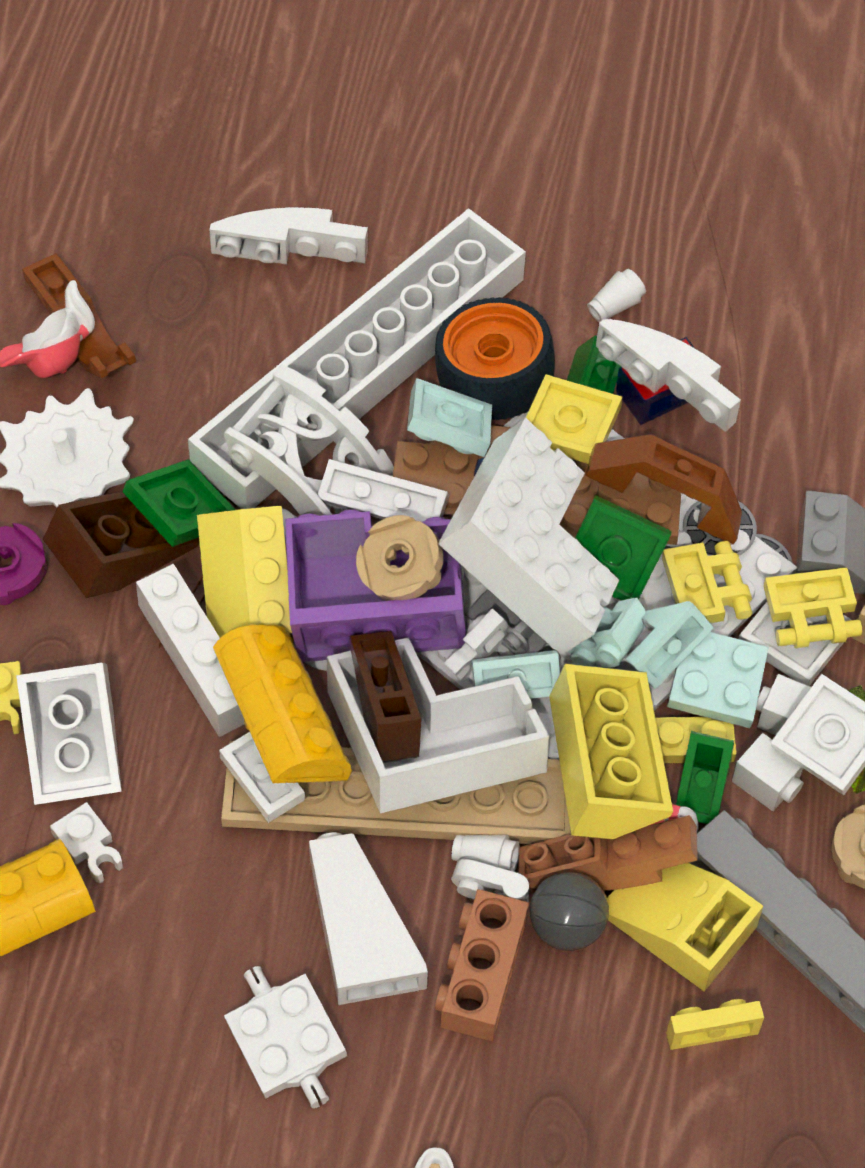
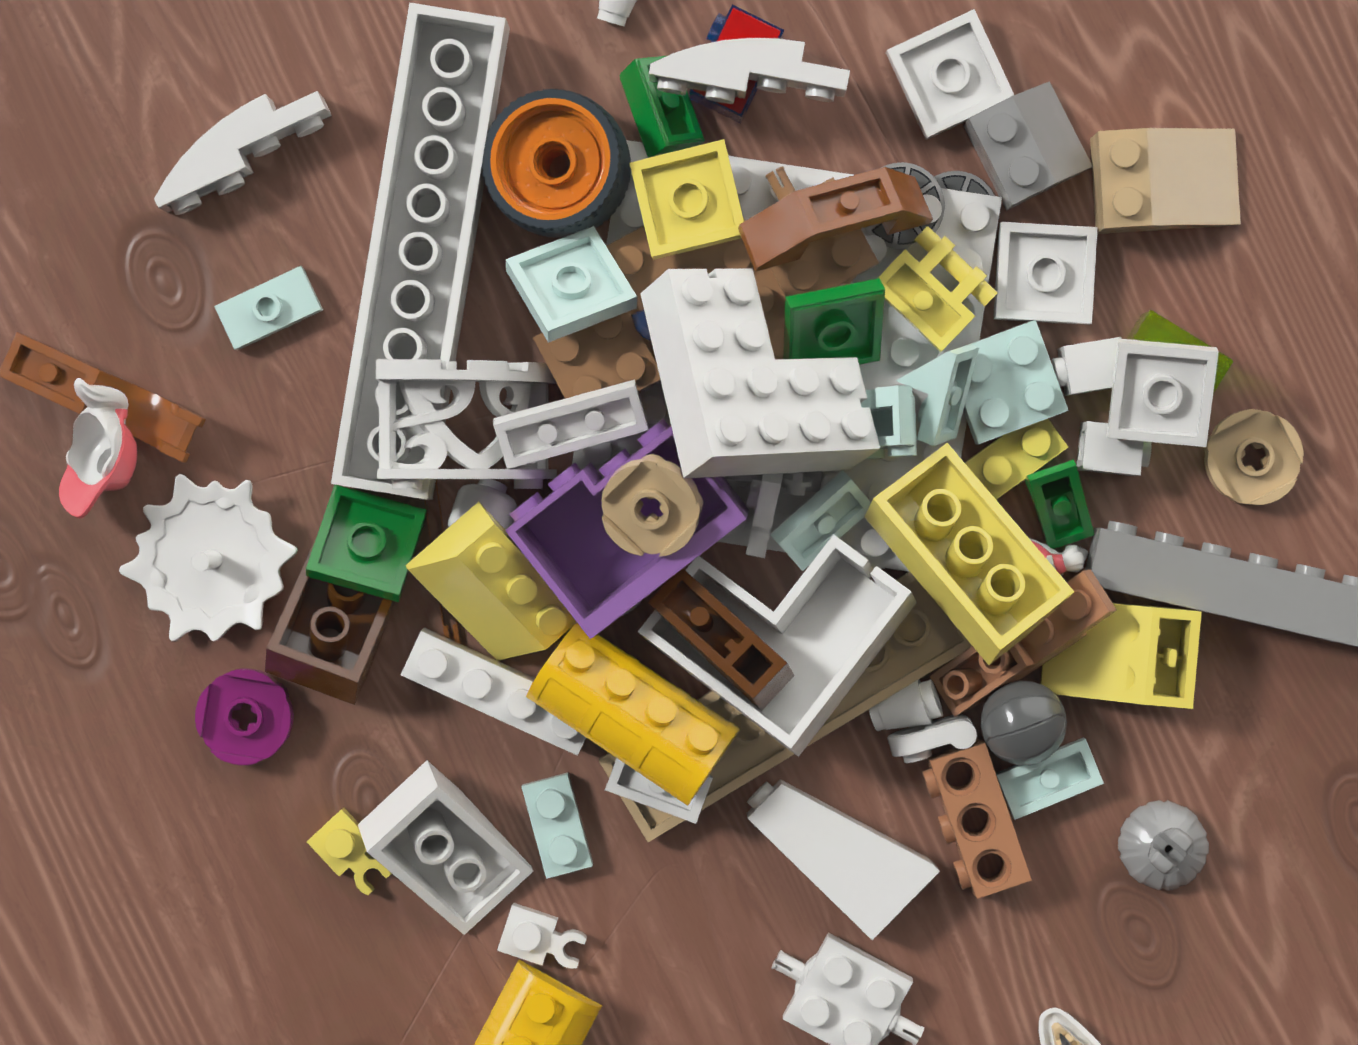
camera: 35 degrees left, 30 degrees up
(163, 774) = (557, 825): none -> light aqua plate
(231, 338) = (268, 308): none -> light aqua plate
(561, 973) = (1050, 781): none -> light aqua plate
(615, 1101) = (1149, 832): none -> light grey hair
(729, 1021) = (1228, 721): light yellow plate -> none
(808, 464) = (949, 73): none -> white plate
(812, 595) = (1044, 234): light yellow plate -> none

